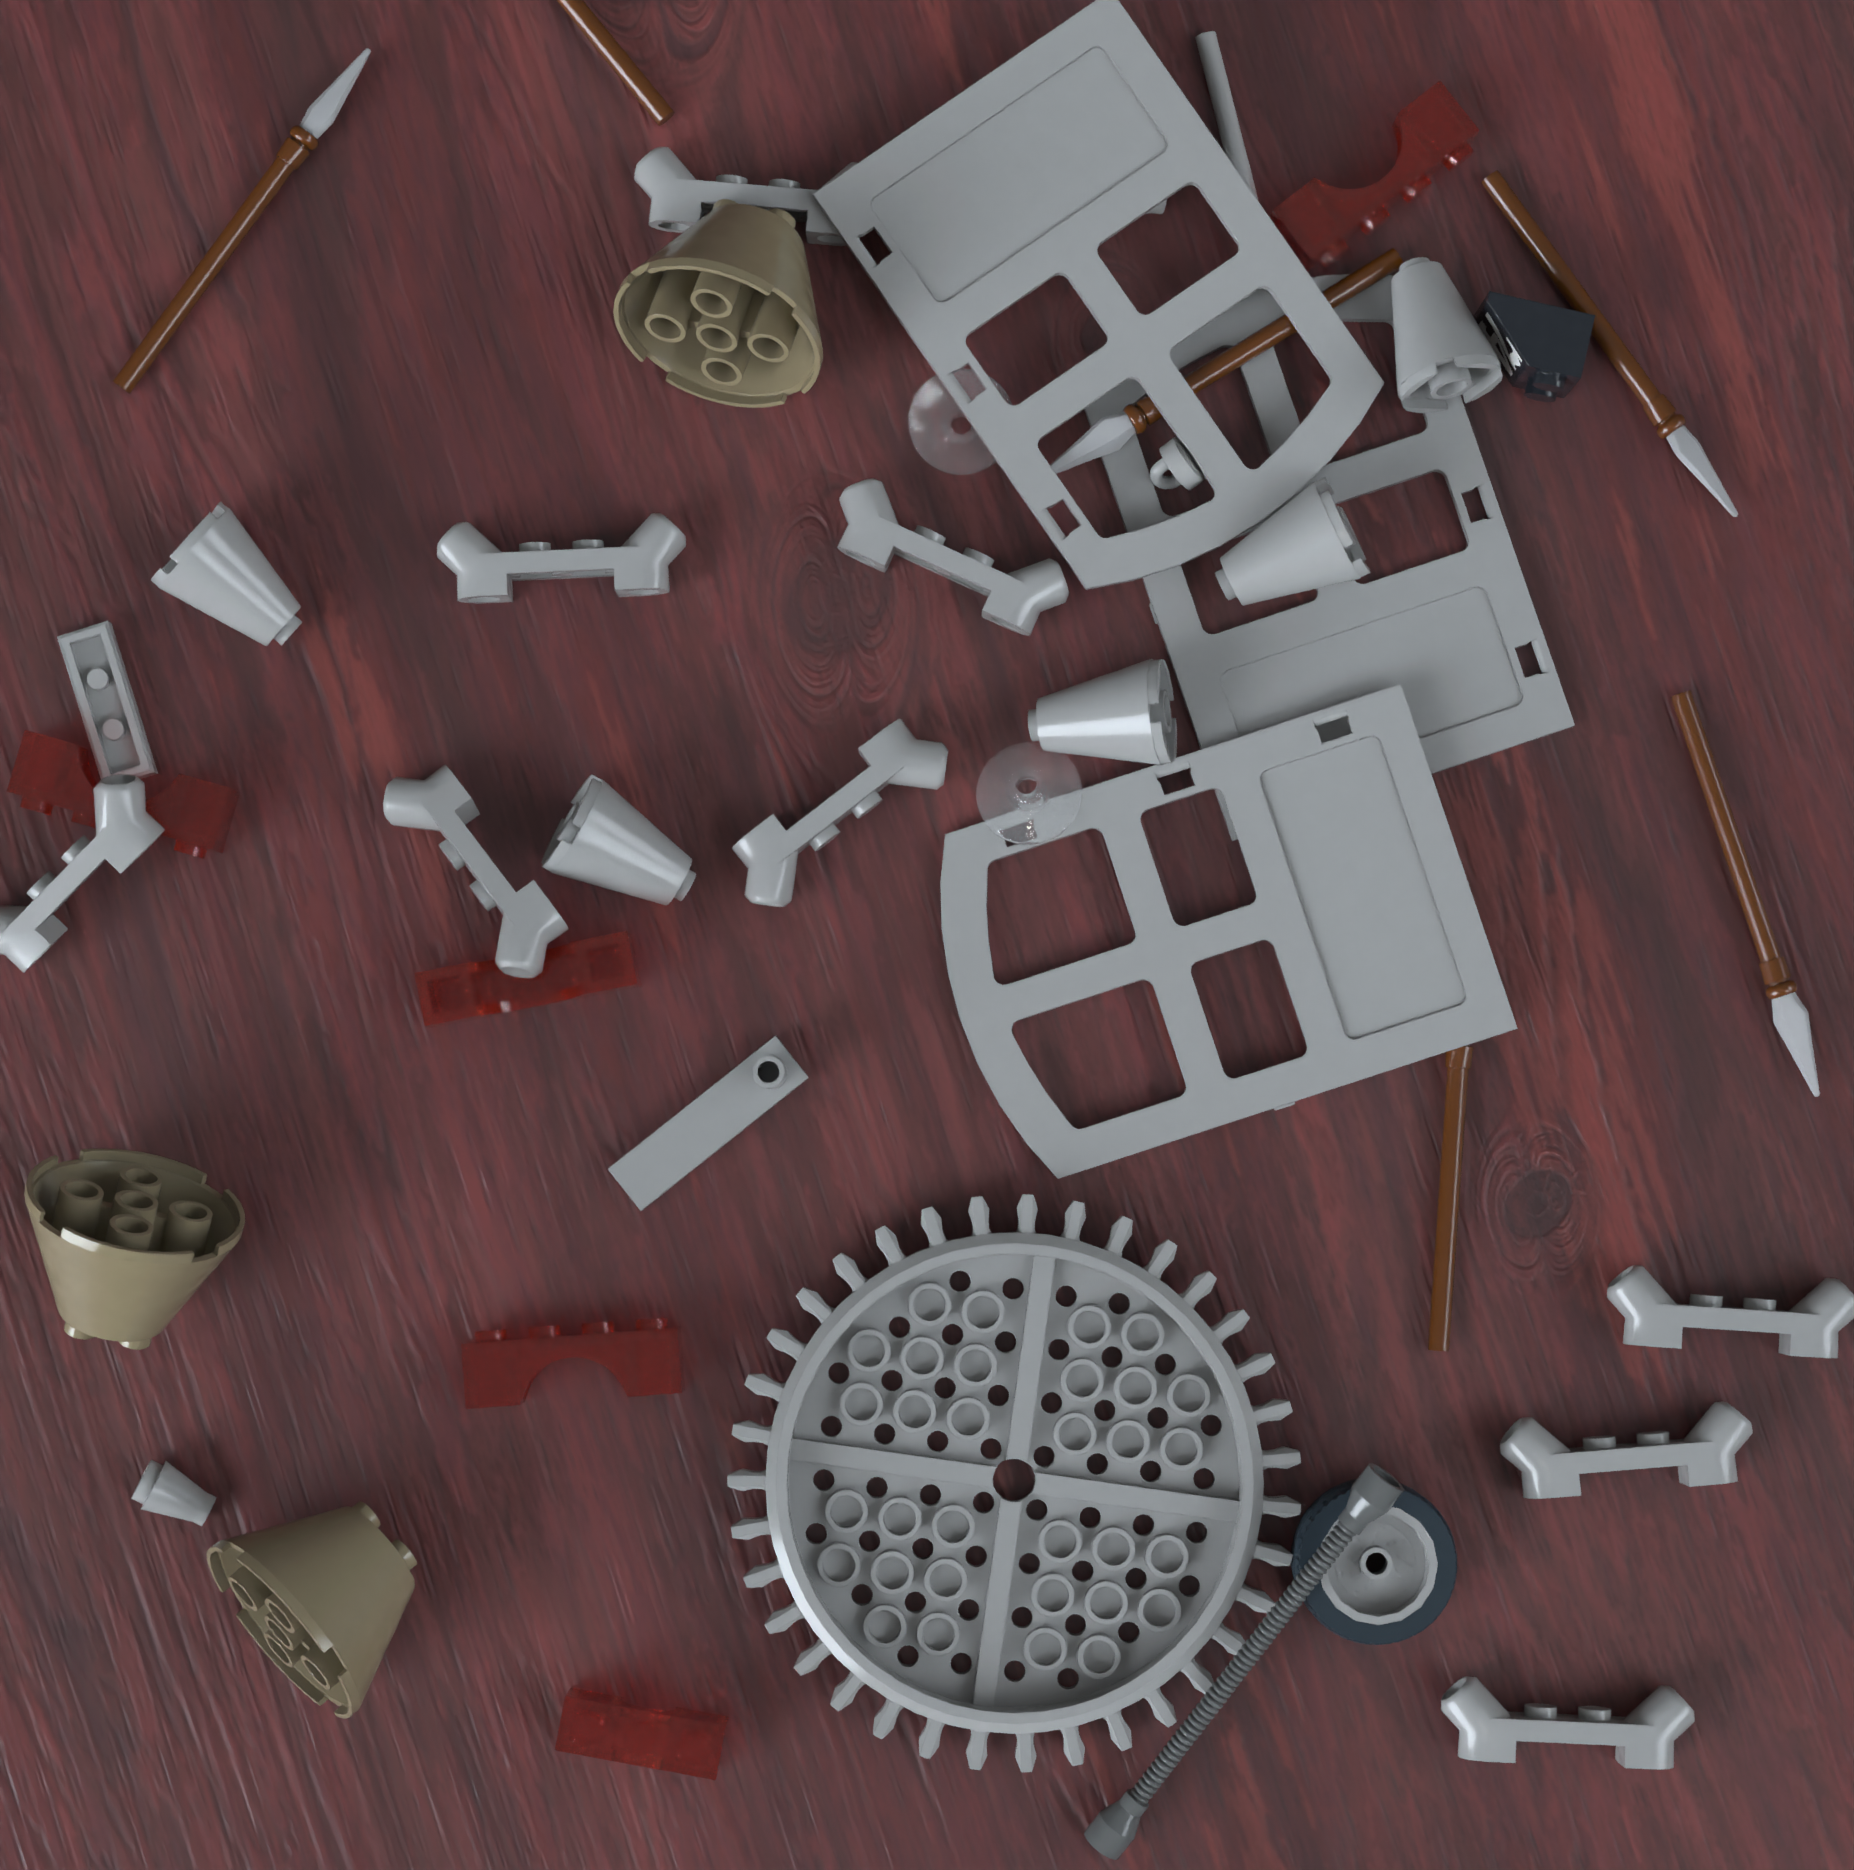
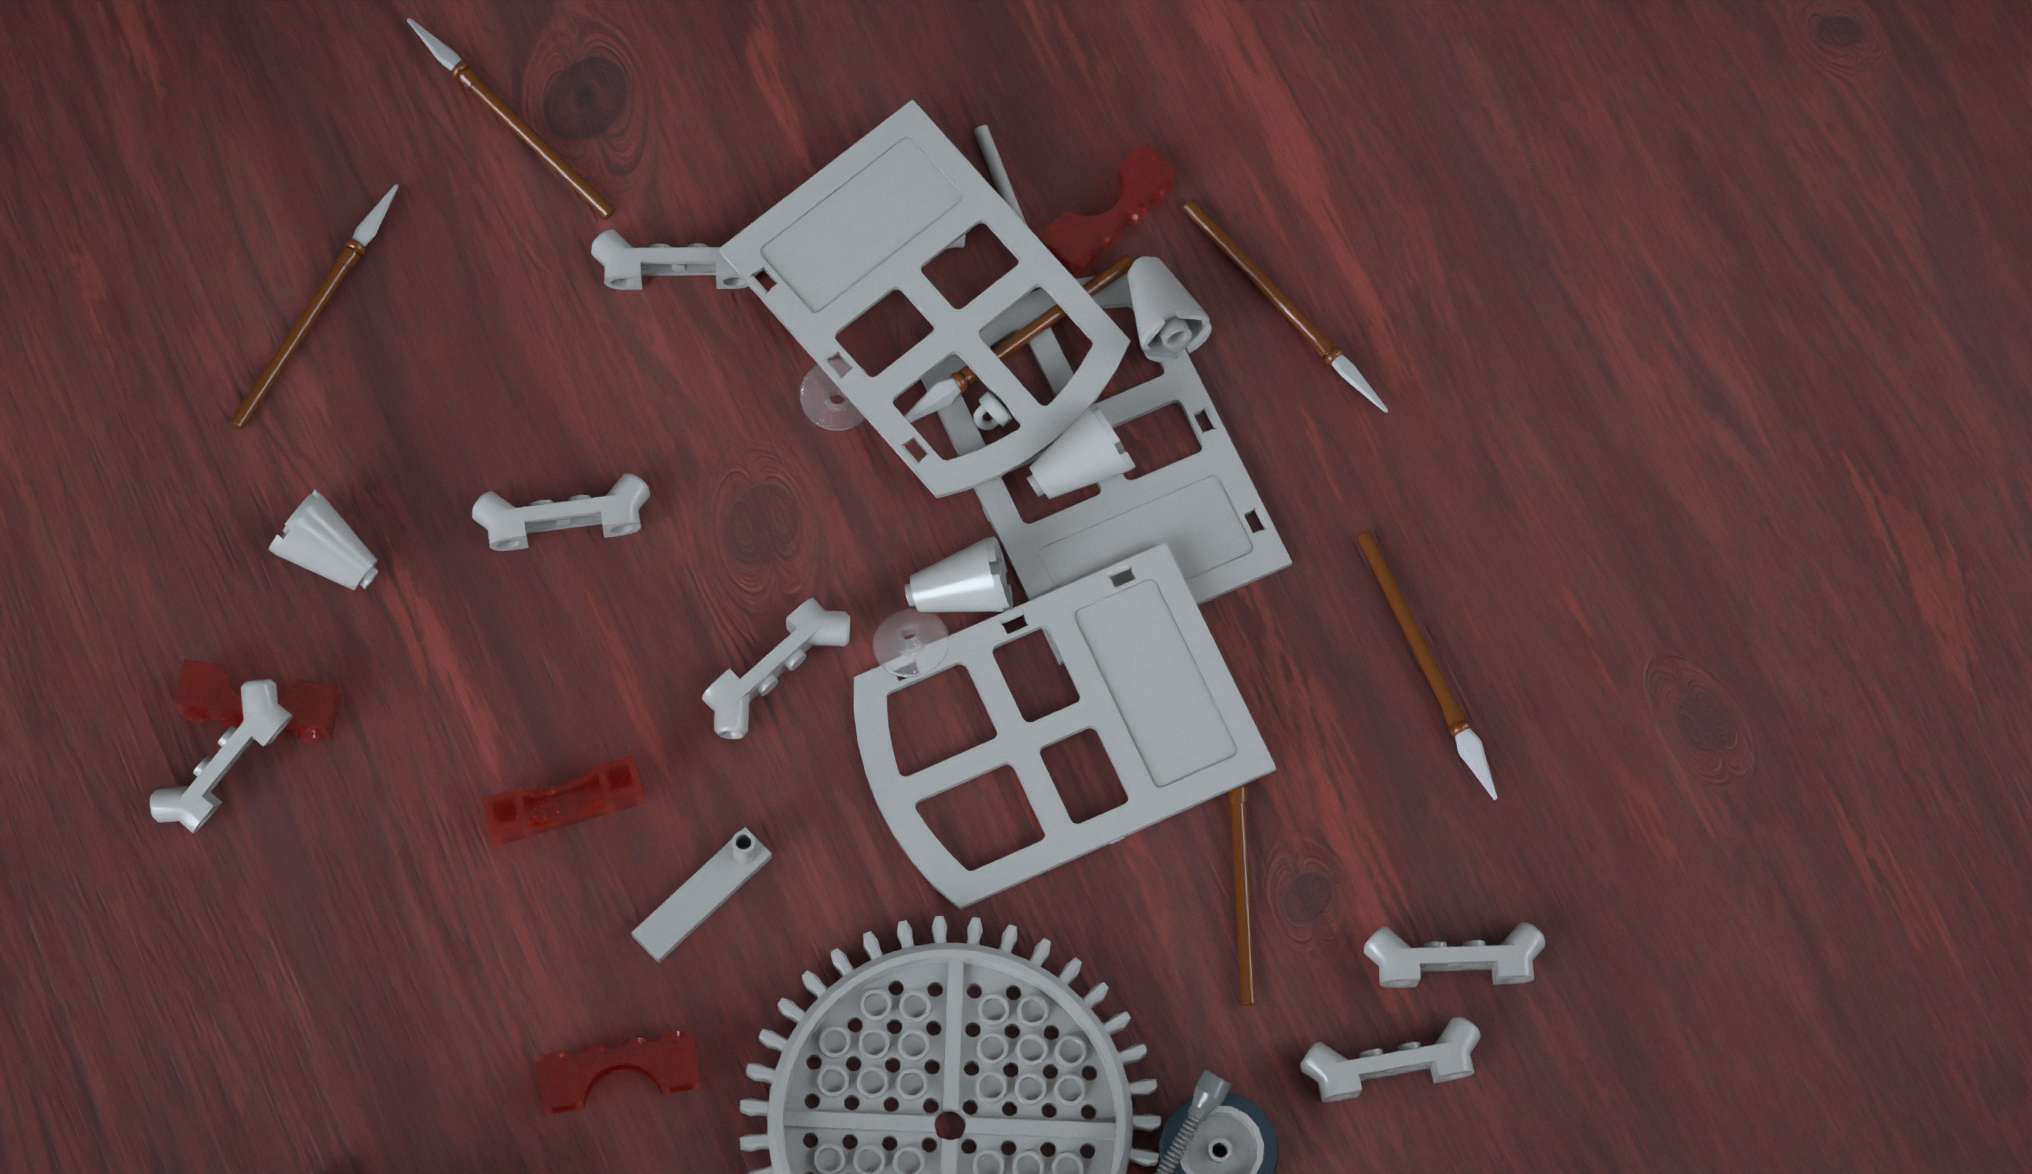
camera: 15 degrees left, 15 degrees down
(107, 702) = (238, 636): light grey tile -> none
(127, 1239) = (284, 1011): dark tan cone -> none
(446, 807) = (494, 688): light grey plate -> none
(617, 848) = (619, 704): light grey cone -> none
(727, 309) = (664, 331): dark tan cone -> none
(876, 536) = (883, 509): light grey plate -> none
(1537, 343) = (1233, 304): black slope -> none

